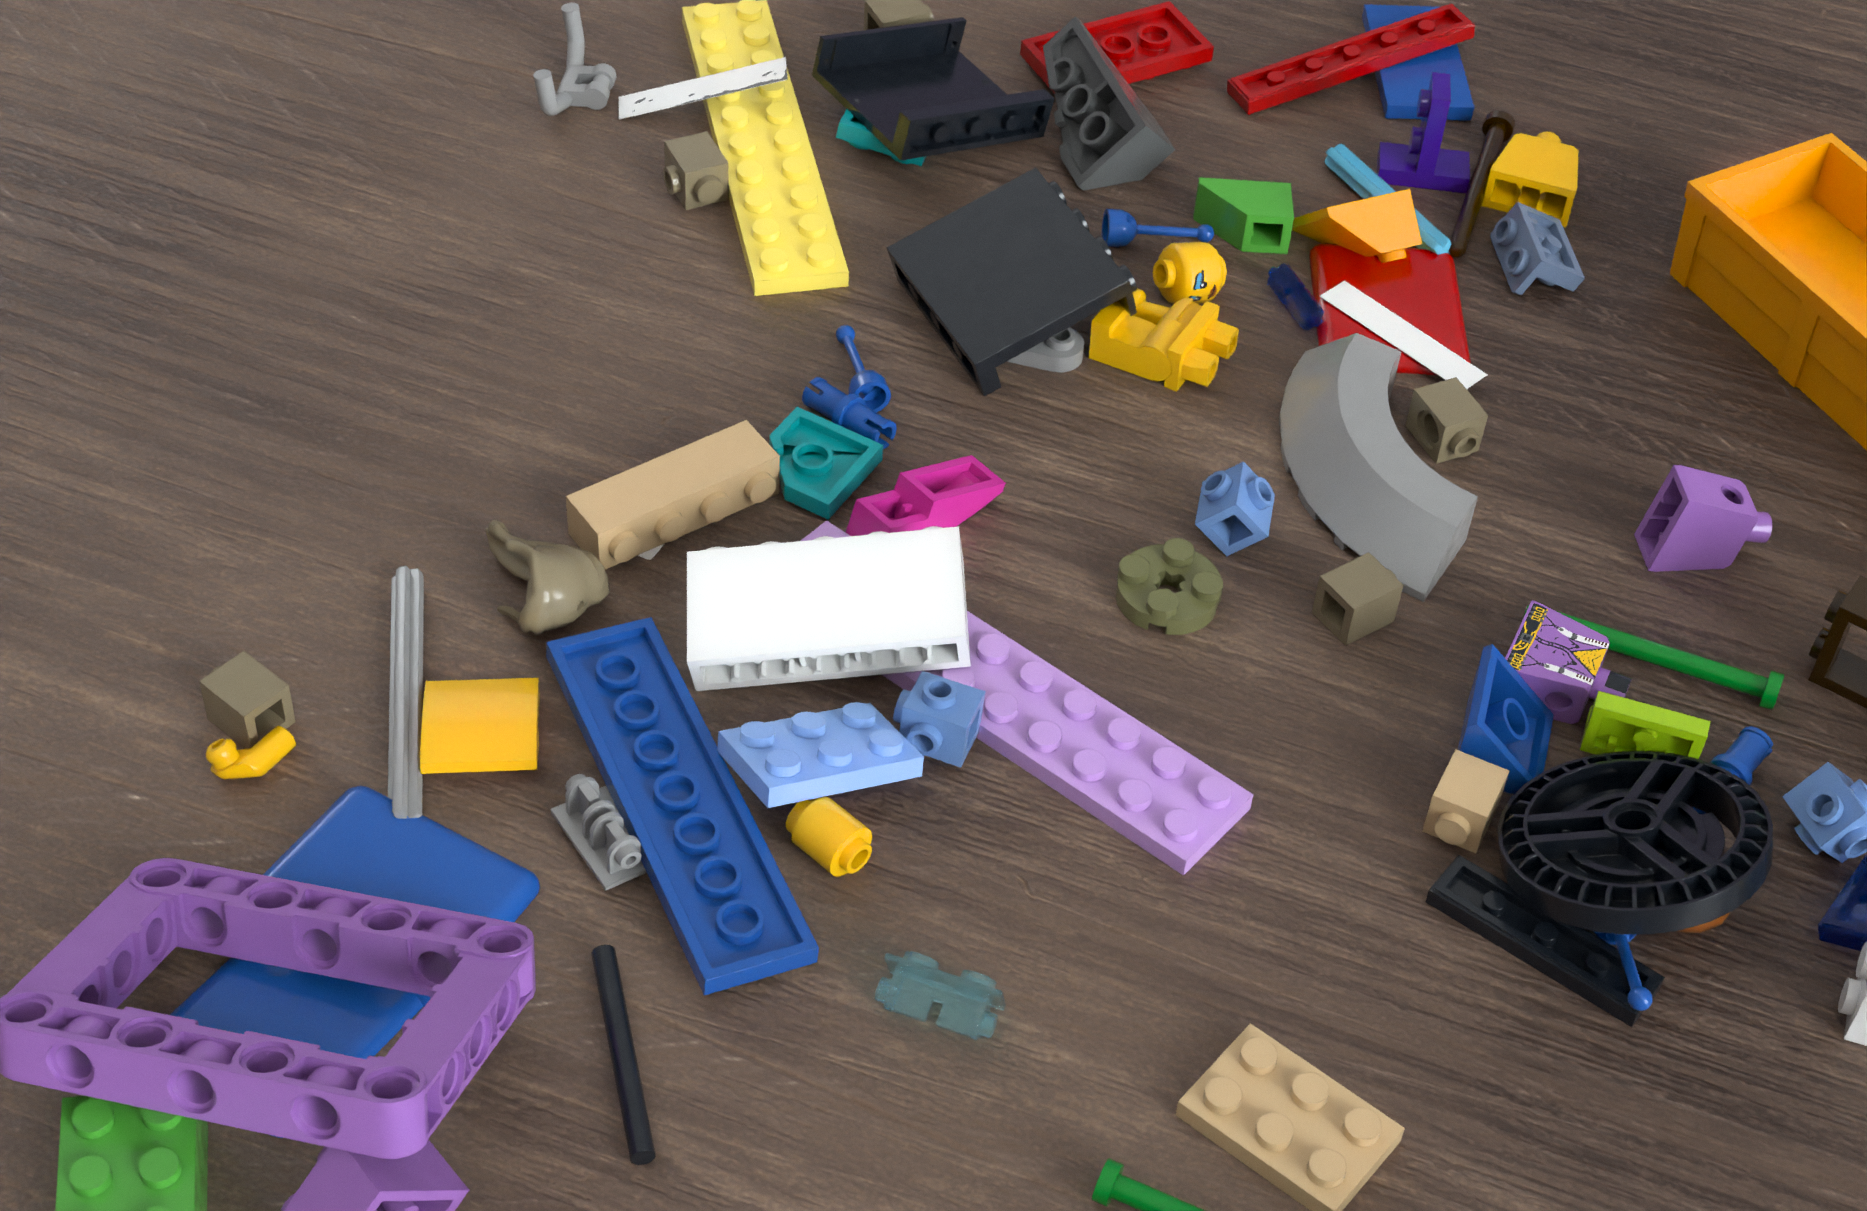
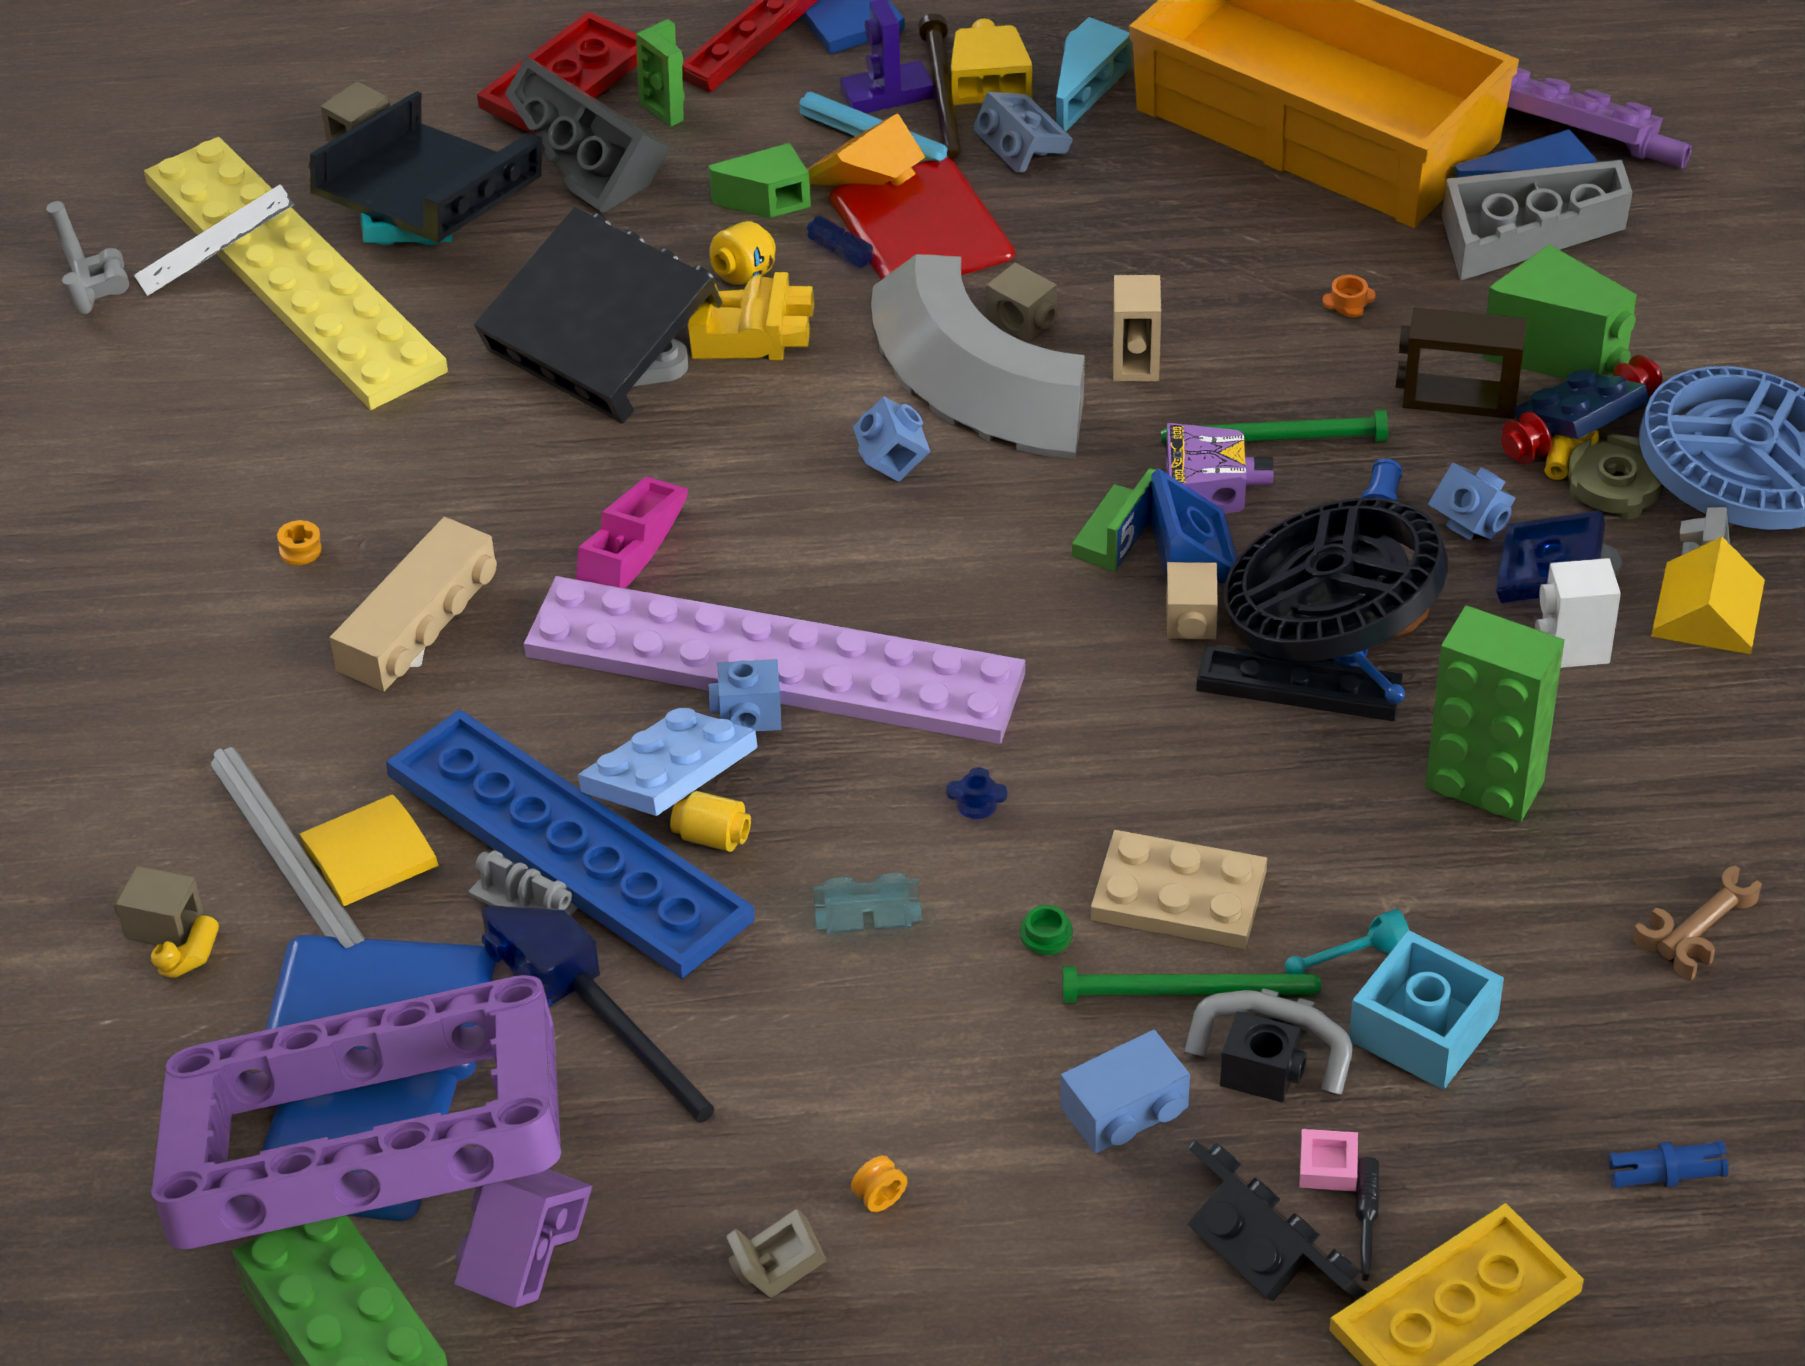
camera: 20 degrees left, 0 degrees up
(559, 579) = (360, 708): dark tan piece -> none
(582, 902) = (540, 945): none -> clear blue slope
(608, 406) = (303, 552): none -> light orange bush
(695, 170) = (255, 317): dark tan brick -> none
(821, 461) = (523, 528): teal plate -> none
(826, 609) = (608, 644): white brick -> none
(848, 411) = (520, 480): blue pin -> none
(865, 383) = (522, 453): blue hinge -> none
(1116, 1107) = (1046, 930): none -> green plate
(1121, 228) = (661, 234): blue hinge -> none
(1121, 932) = (977, 794): none -> clear blue plate
(1174, 565) = (868, 504): olive plate -> none
(1202, 75) = (660, 72): none -> bright green bracket
(1357, 598) = (1026, 475): dark tan brick -> none
(1402, 334) = (945, 242): white sticker -> none
(1425, 688) = (1115, 525): none -> bright green panel
(1549, 488) = (1136, 327): none -> tan brick
(1630, 725) = (1291, 492): lime bracket -> none
(1637, 214) = (1091, 64): none -> medium azure slope
(1699, 522) = (1264, 312): medium lavender torso -> none
(1736, 1071) = (1493, 713): none -> bright green brick
(1803, 539) = (1349, 296): none -> orange plate

